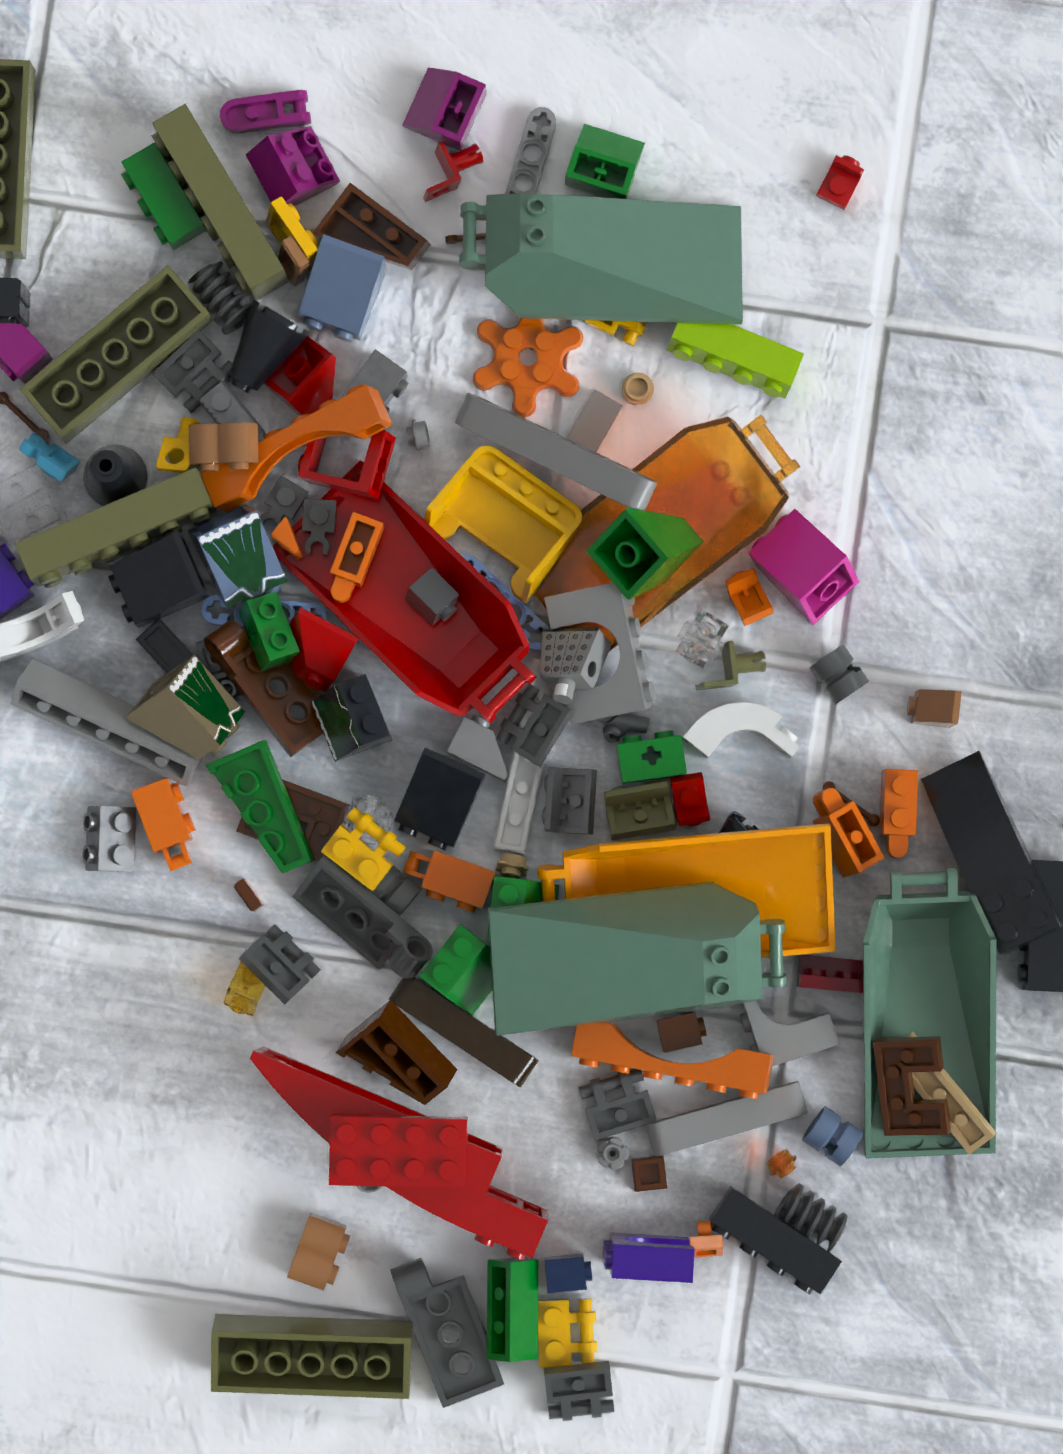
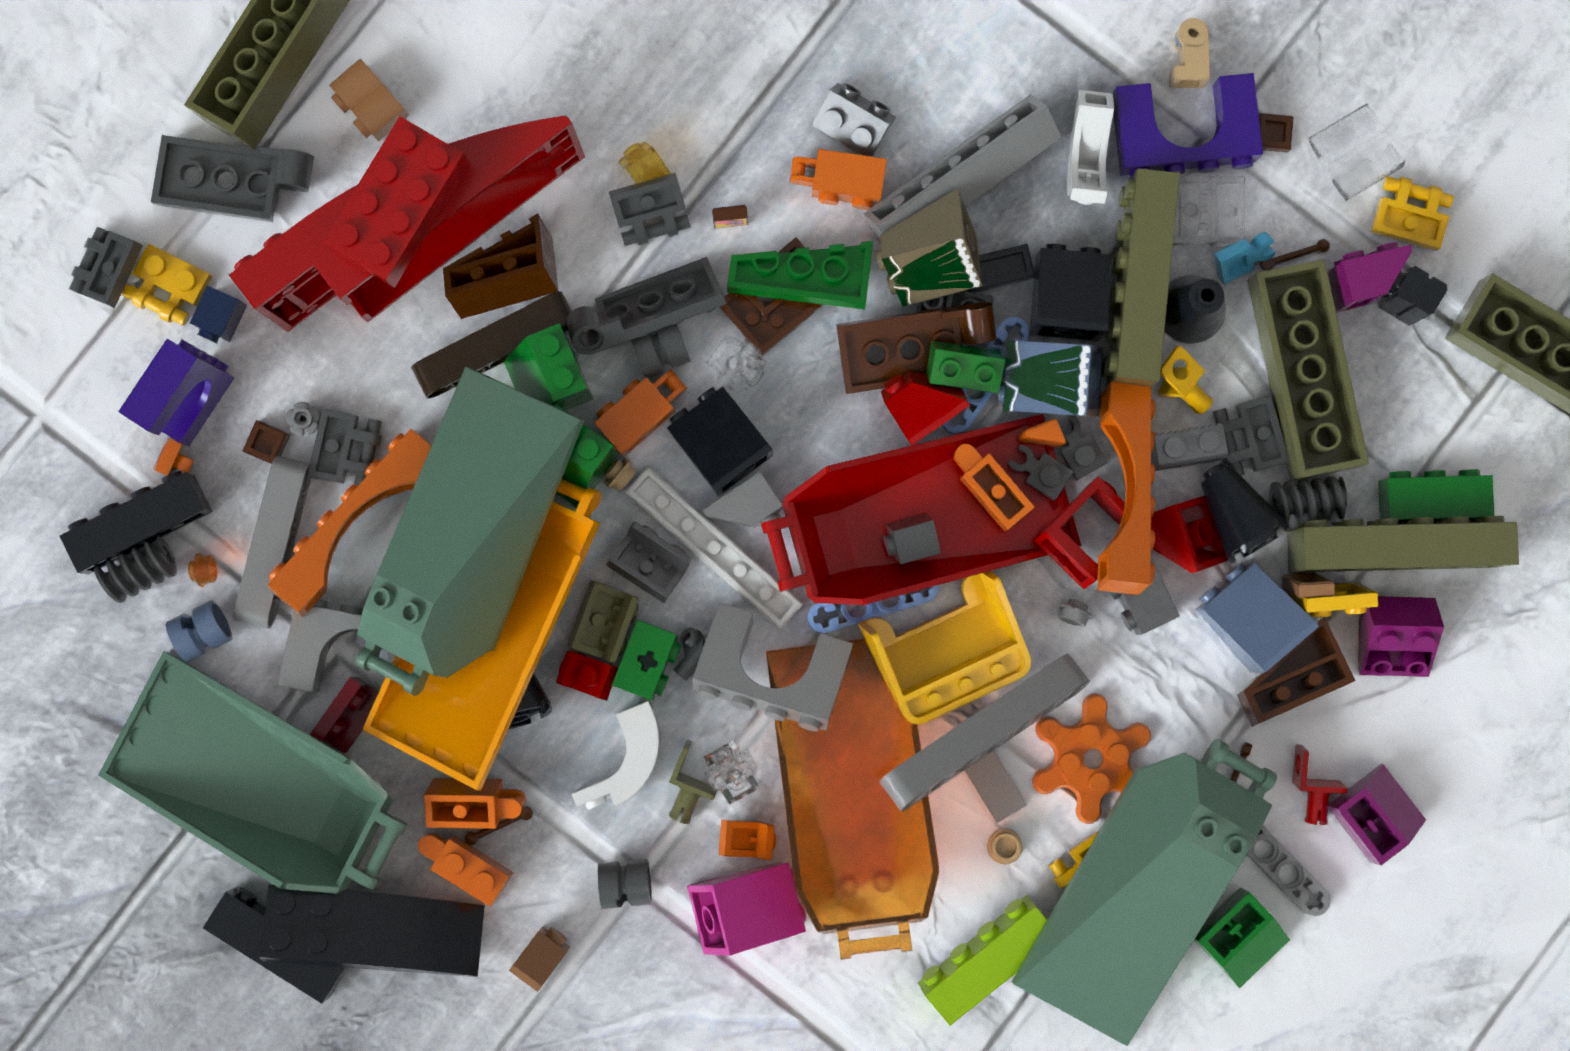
camera: 120 degrees right, 0 degrees up
(223, 444) = (1166, 420): medium nougat brick -> none
(265, 112) = (1466, 640): magenta plate -> none
(351, 718) = (839, 400): black slope -> none
(358, 857) = (706, 331): yellow plate -> none
(512, 1309) = (204, 241): green brick -> none
(541, 729) = (729, 571): dark grey plate -> none
(572, 660) = (778, 636): light grey torso -> none
(643, 549) = (844, 762): green slope -> none
(681, 1031) = (373, 543): reddish brown brick -> none
(900, 1111) = (228, 727): reddish brown plate -> none
(965, 1120) = (179, 755): tan plate -> none

